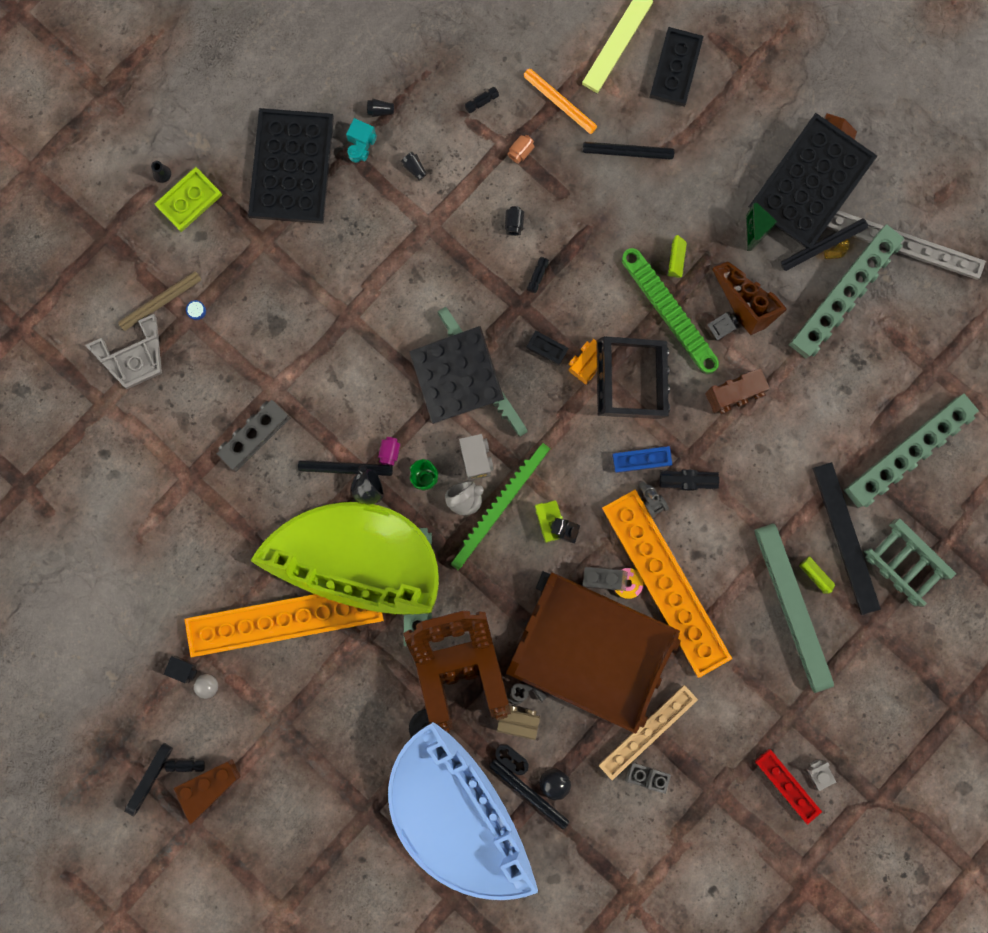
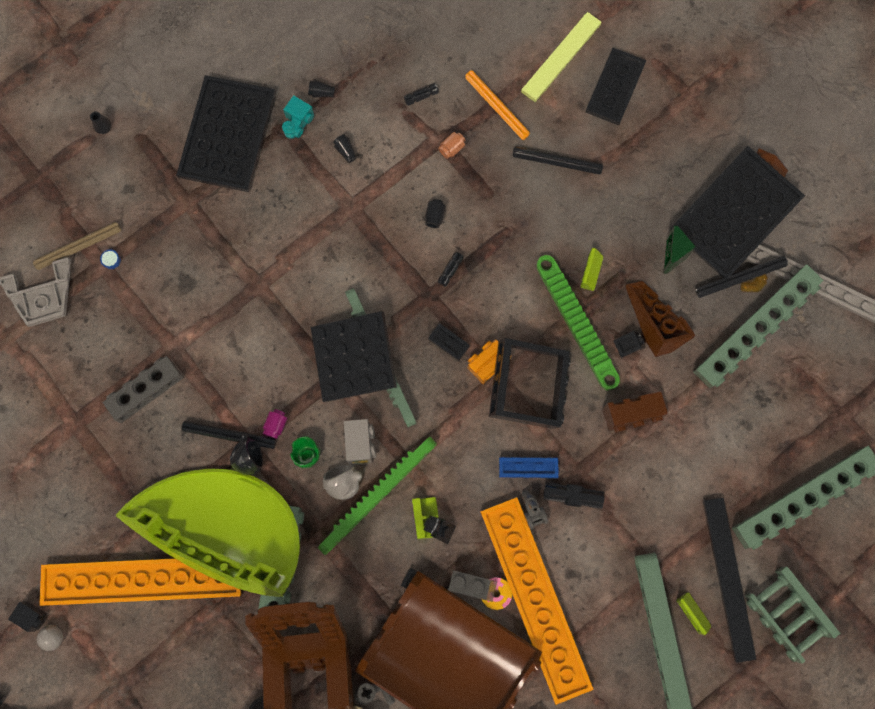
camera: 15 degrees right, 5 degrees down
(188, 199) = (122, 152): lime plate -> none

